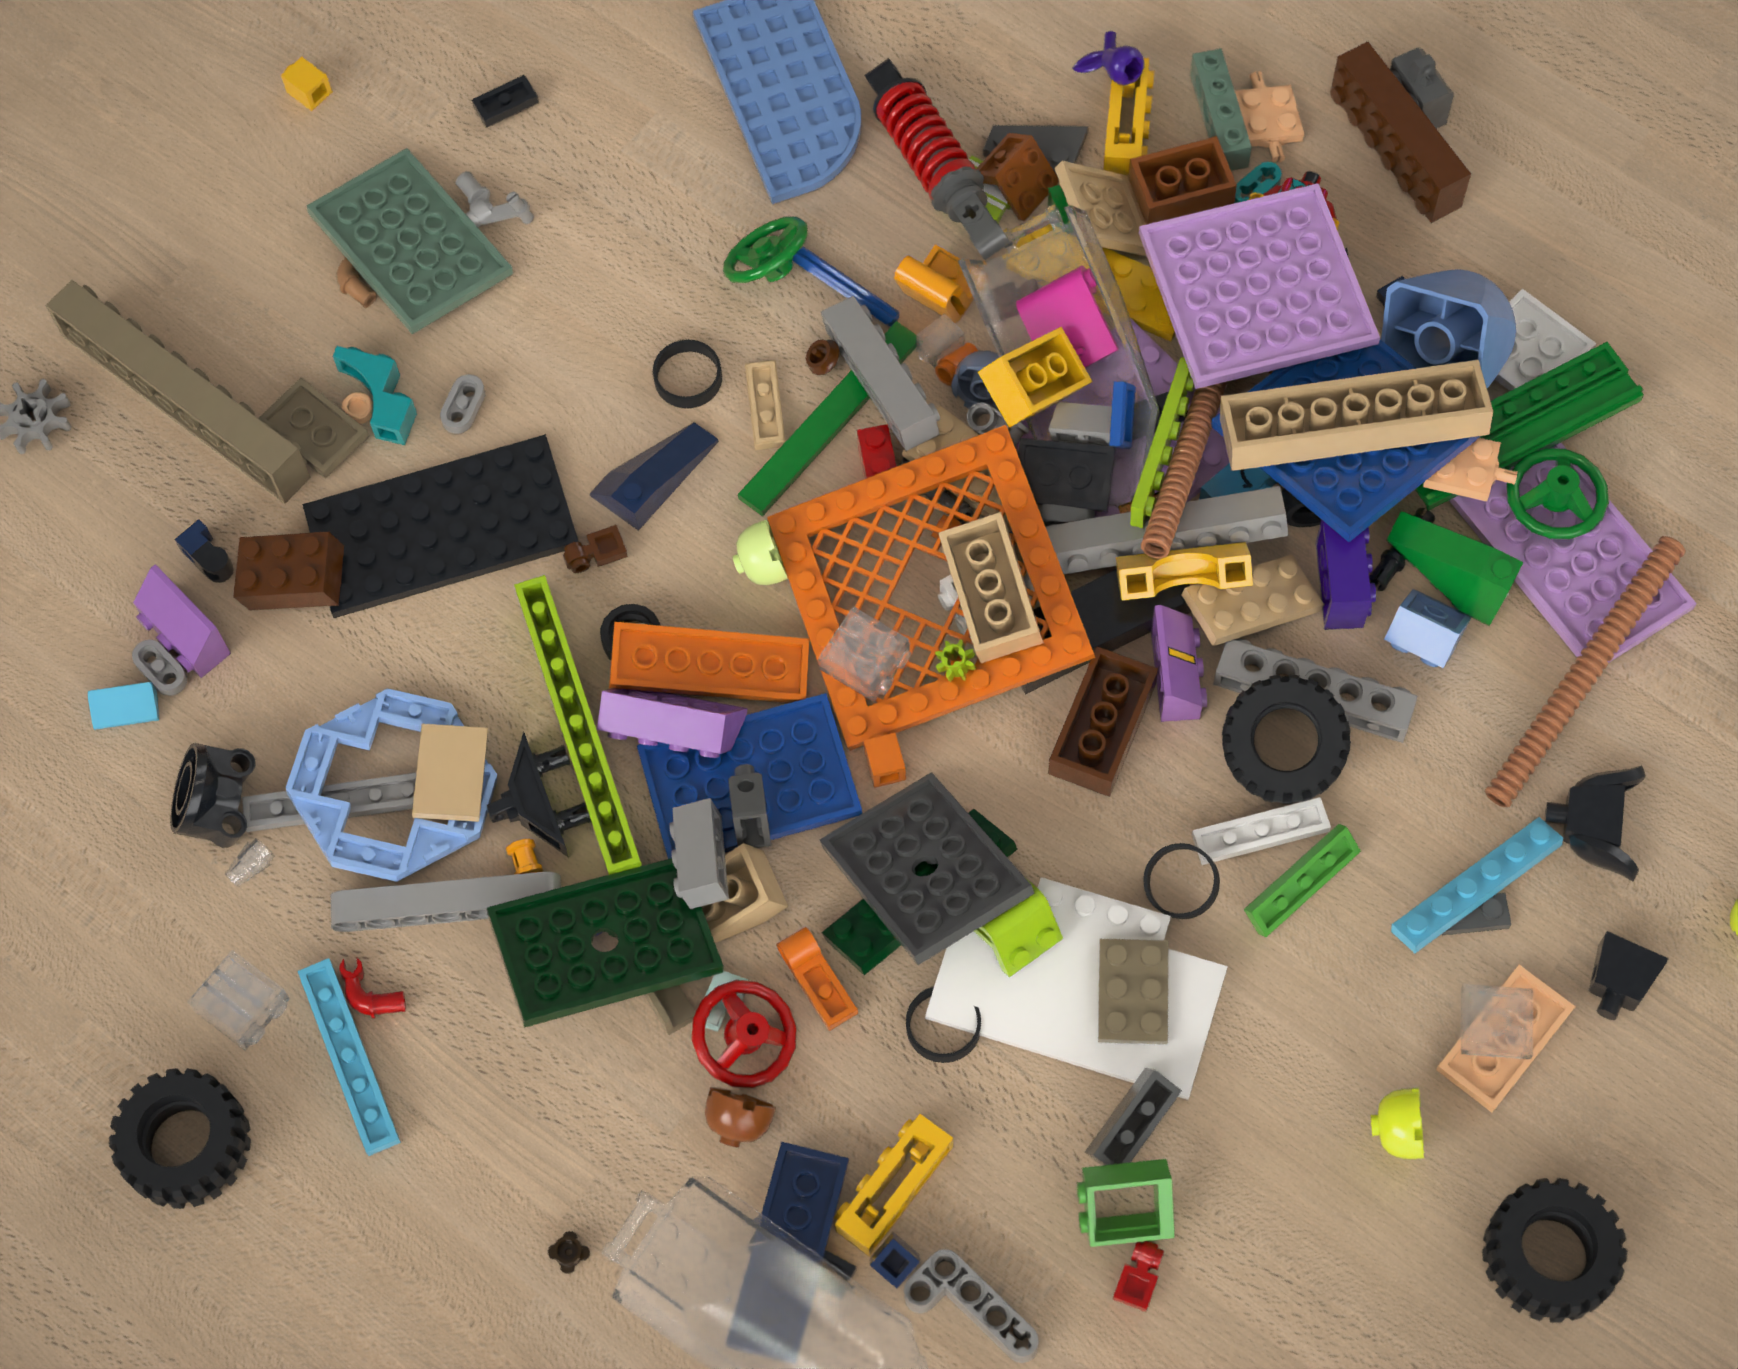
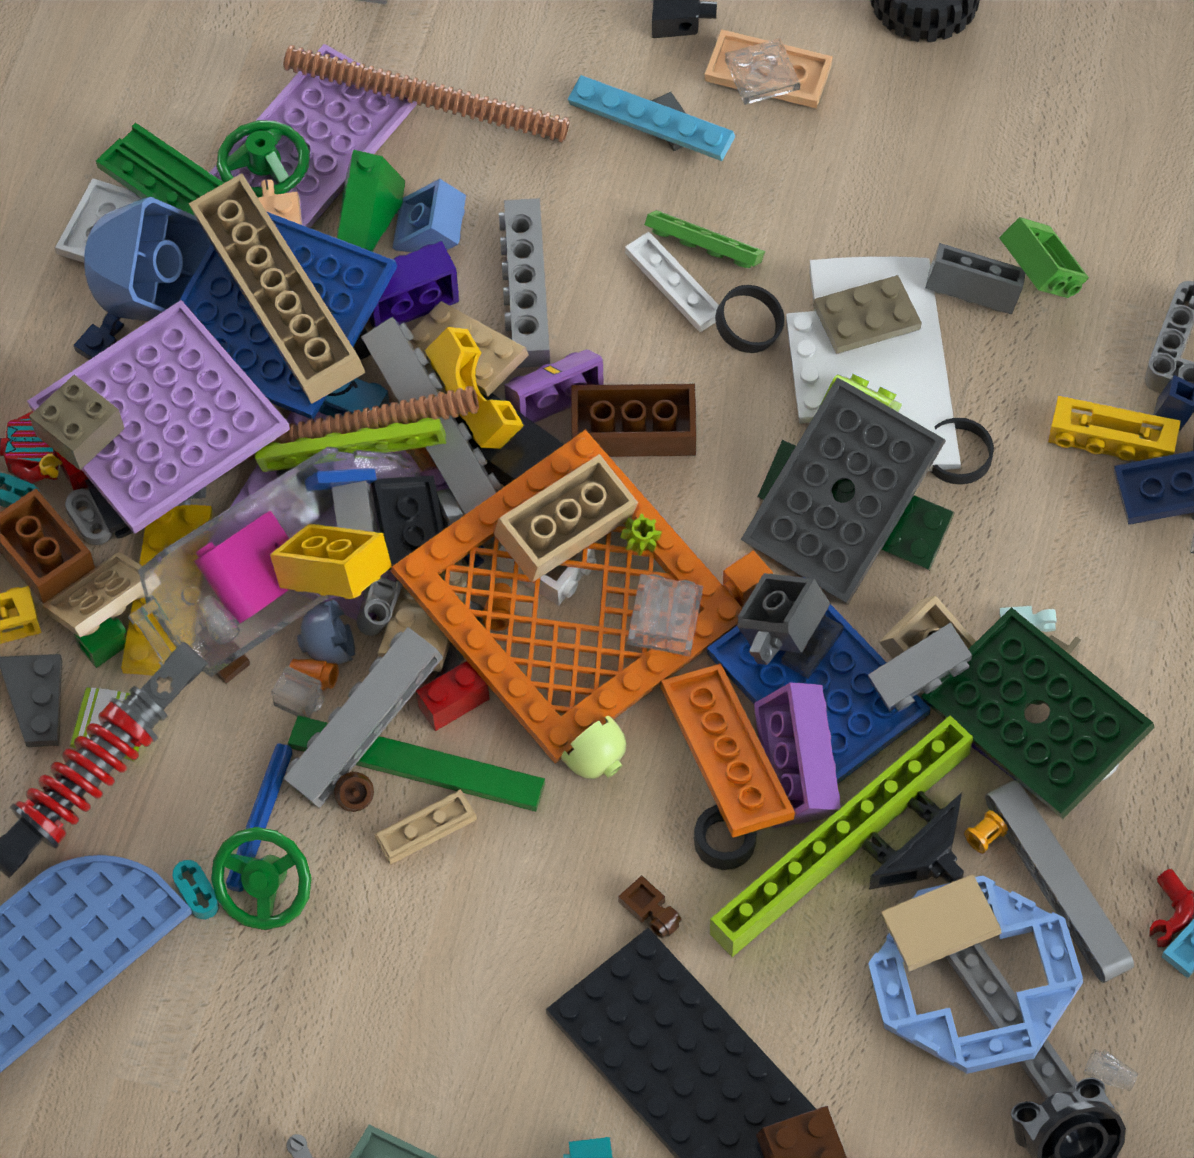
camera: 115 degrees left, 5 degrees down
(462, 406) = (545, 1101): light grey plate -> none
(647, 480) = (551, 893): dark blue wedge -> none
(680, 347) = (417, 877): black tyre -> none
(737, 1116) = (1121, 561): dark orange cylinder -> none
(744, 1033) = (1055, 578): red piece -> none
(749, 802) = (855, 649): dark grey torso -> none
(780, 779) = (816, 649): none -> clear smoke plate
(793, 207) = (201, 886): none -> teal beam
(811, 750) = (781, 615): none -> dark grey hinge
(817, 978) = (972, 554): orange plate -> none
(936, 283) = (235, 714): light orange piece -> none
(1019, 173) = (78, 693): dark orange bracket -> none
(1024, 282) = (219, 621): none -> clear cone
(1137, 1284) = (1097, 242): red plate -> none
(1265, 204) = (77, 422): none -> dark tan brick
(1295, 694) = (611, 247): black tyre -> none
(1400, 1124) = (879, 104): neon yellow cylinder -> none
(1595, 819) = (550, 59): black torso -> none

